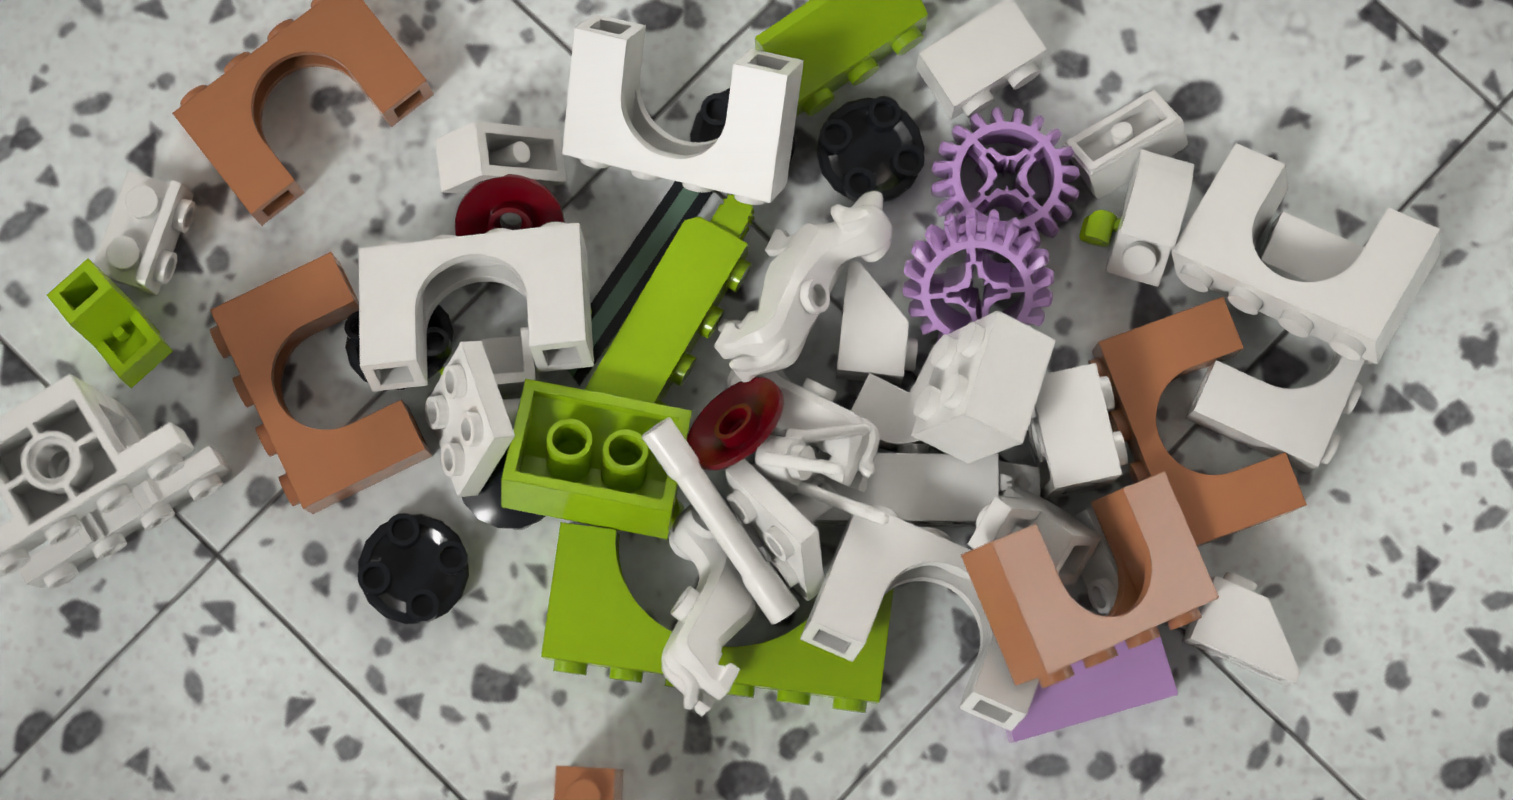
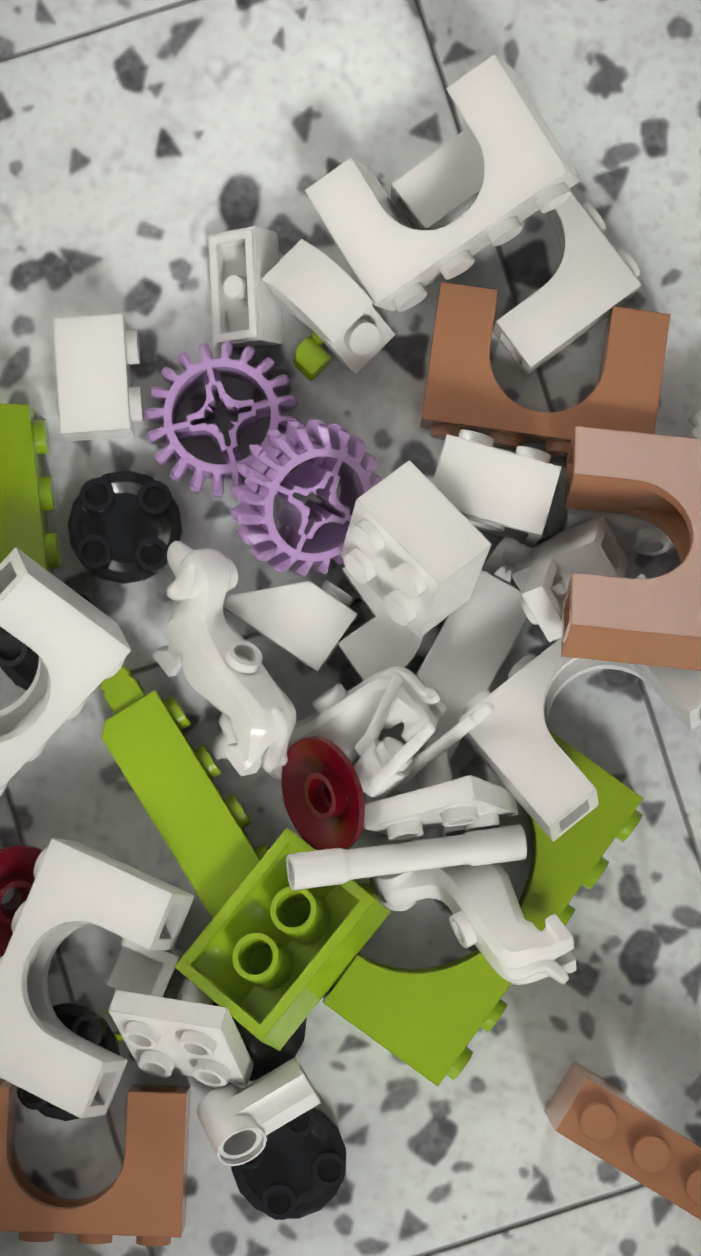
camera: 65 degrees left, 5 degrees up
(427, 506) = (241, 1118): none -> white piece
(636, 267) = (116, 799): sticker -> none

